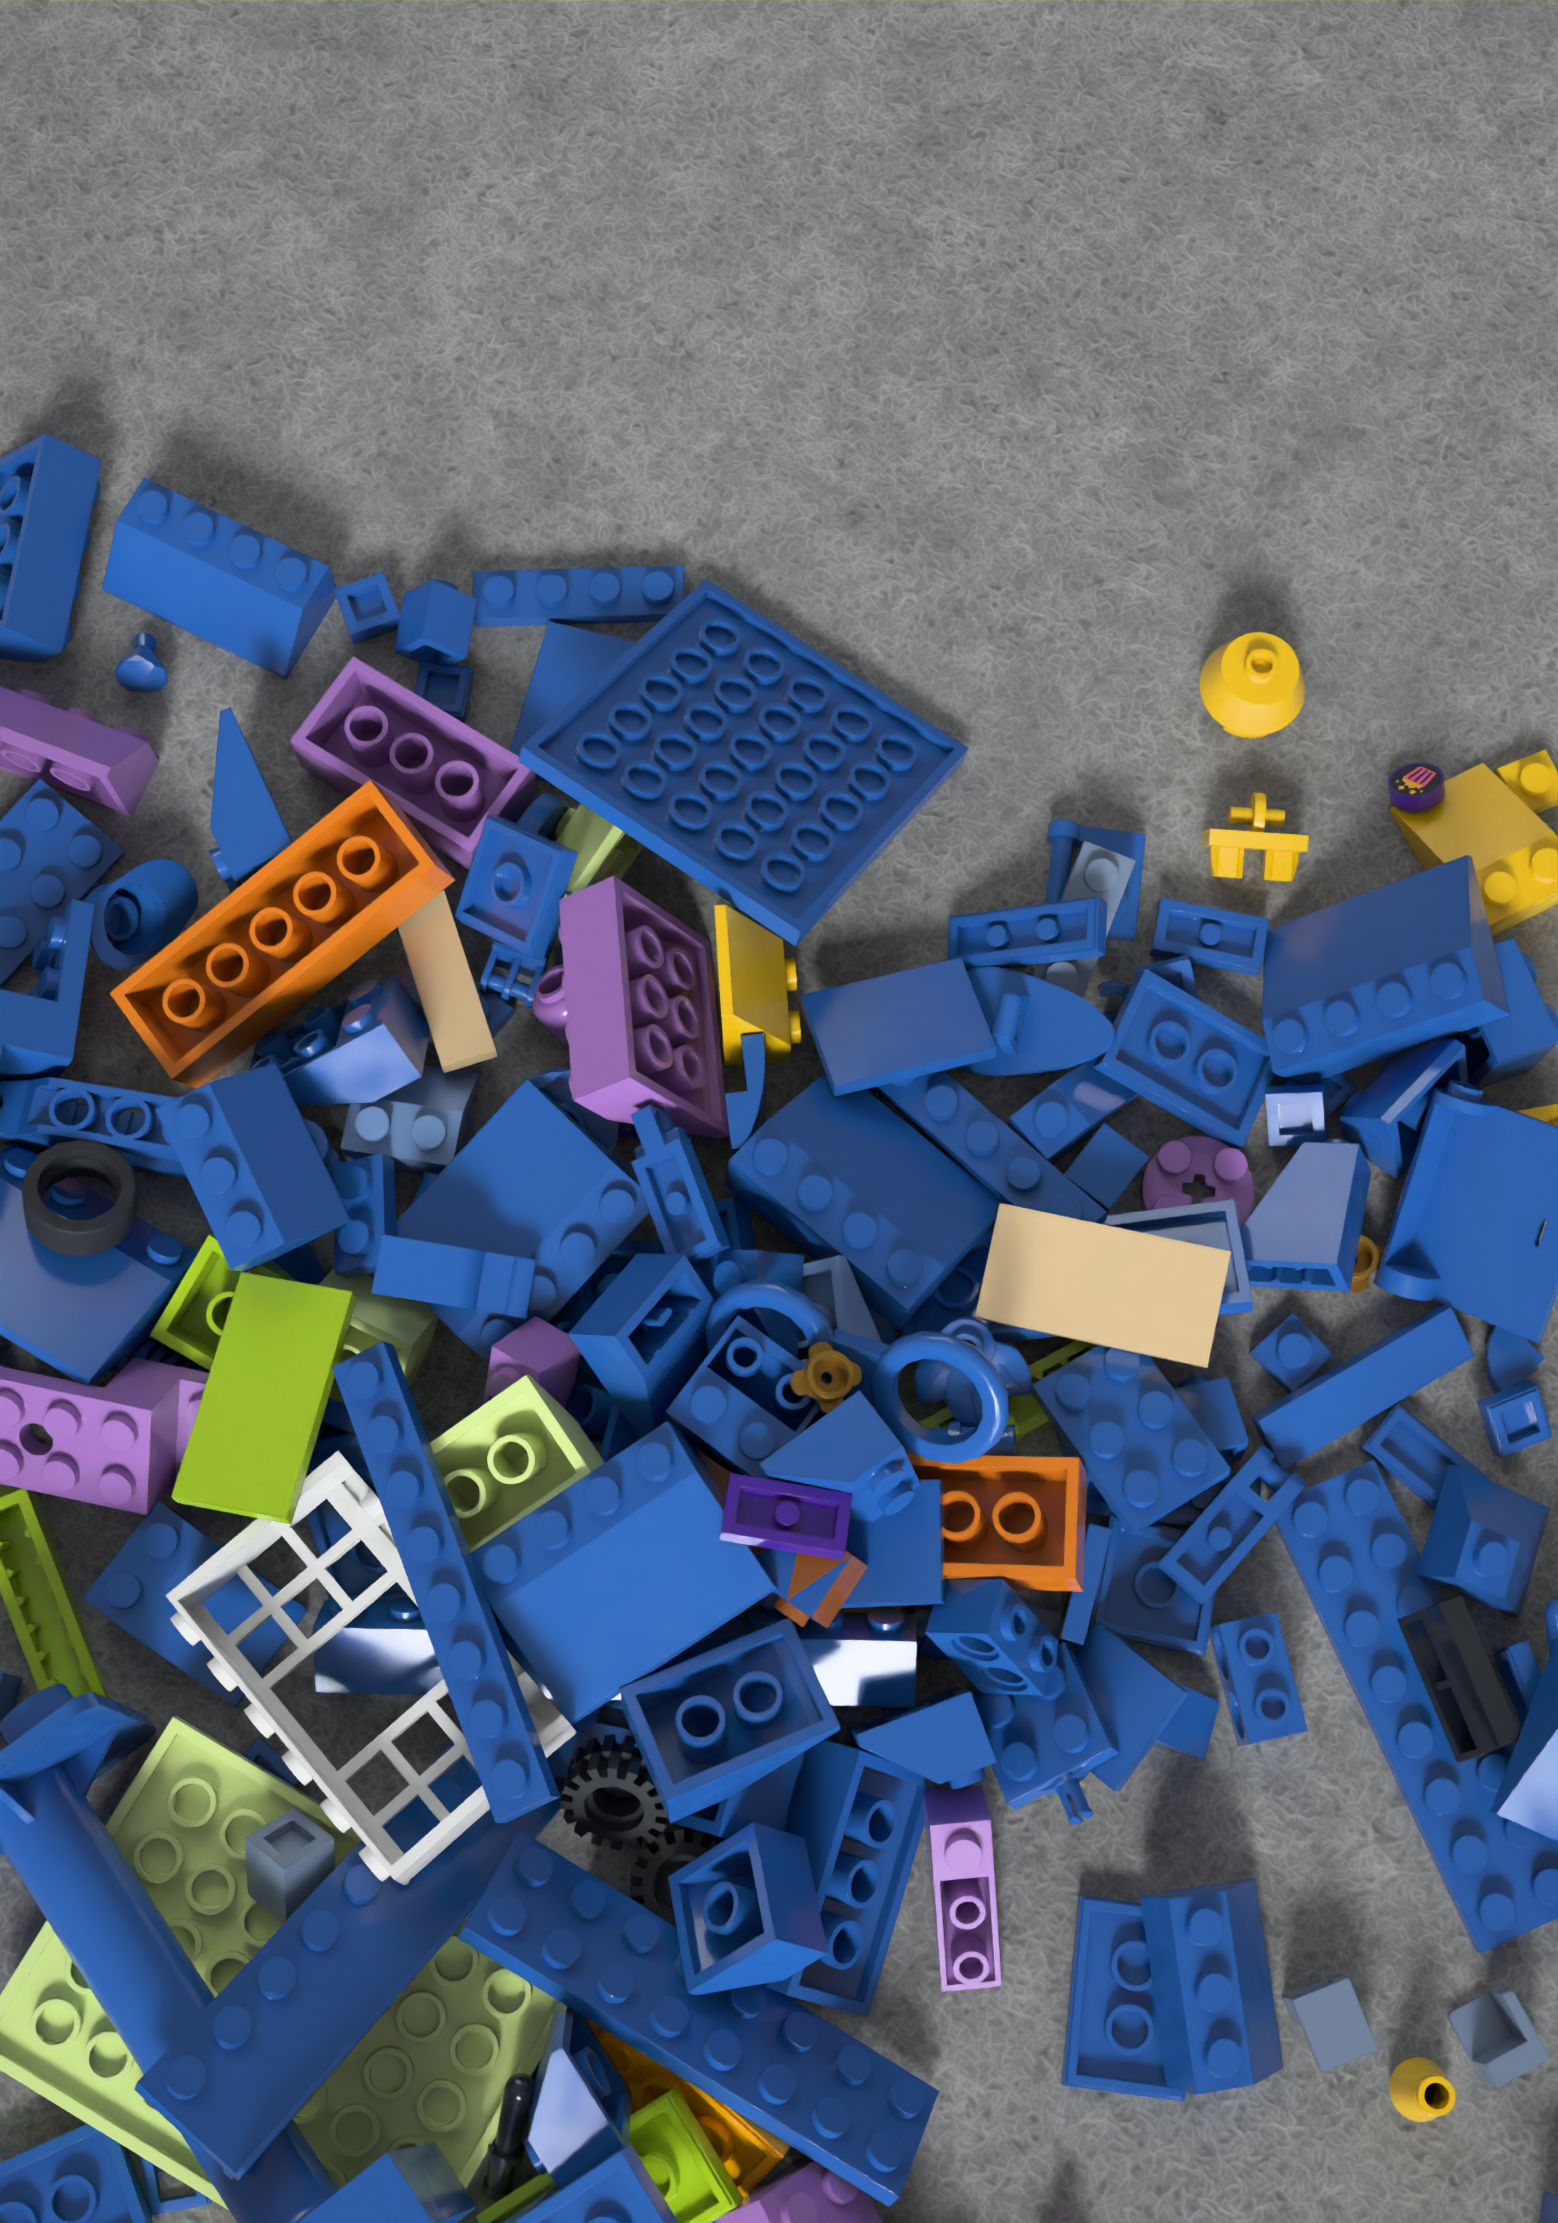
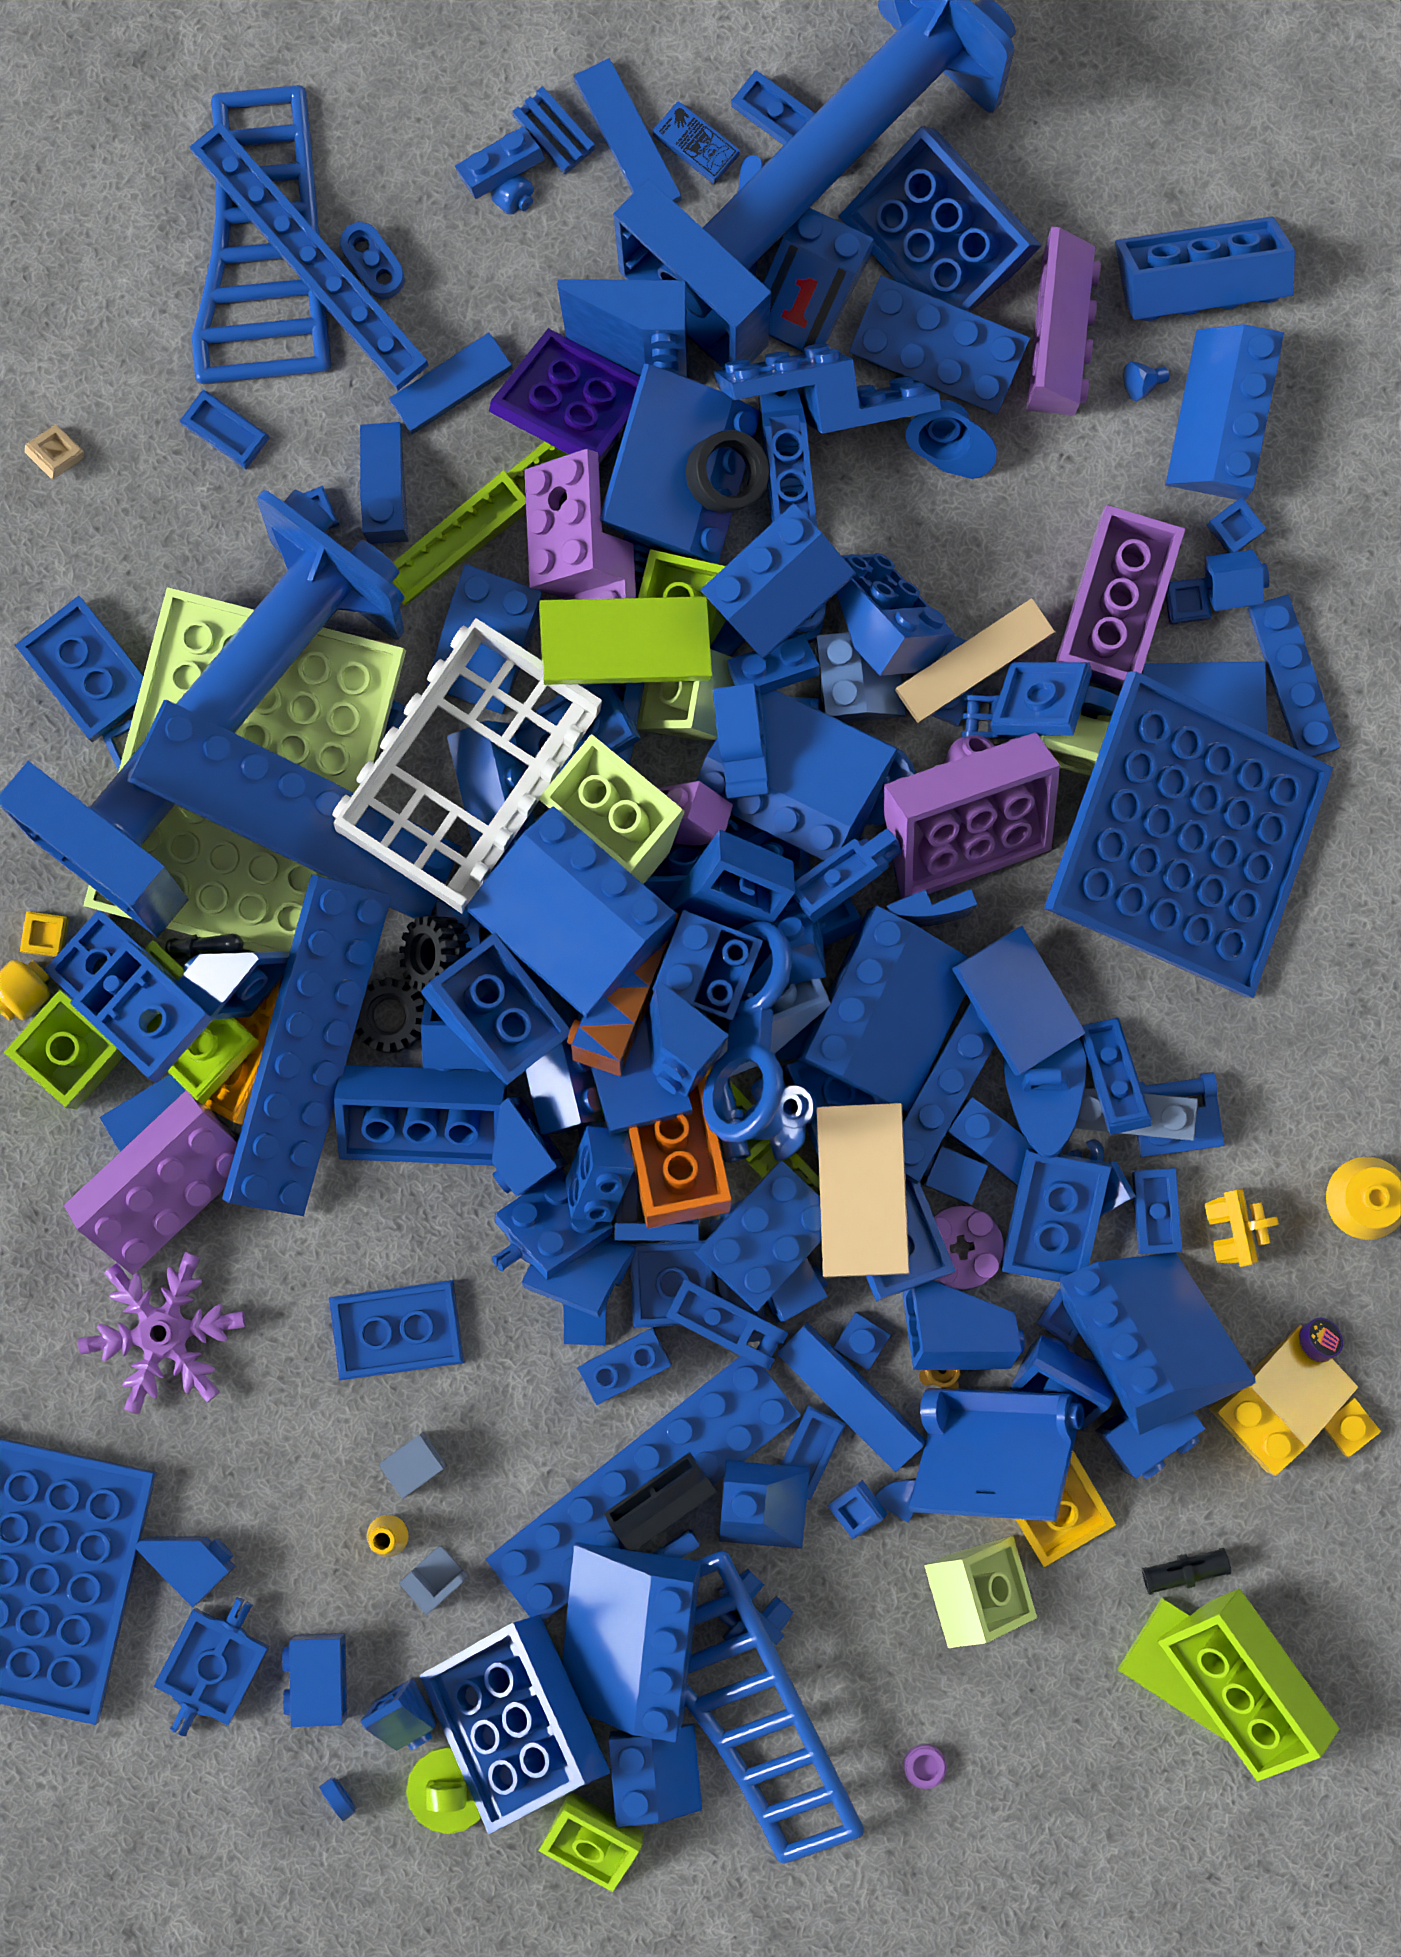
camera: 80 degrees right, 10 degrees up
(243, 809) = (1037, 495): blue slope -> none
(281, 936) = (959, 547): orange brick -> none
(287, 1862) = (330, 752): sand blue panel -> none
(445, 1584) = (533, 795): blue plate -> none
(747, 1911) = (378, 1057): blue slope -> none
(754, 987) = (1013, 889): yellow slope -> none
(785, 1516) = (631, 1009): dark purple plate -> none
(822, 1360) = (739, 1023): pearl gold plate -> none
(963, 1887) = (436, 1199): medium lavender slope -> none
(1211, 1986) = (416, 1381): blue slope -> none
(1296, 1114) = (1036, 1304): plate -> none

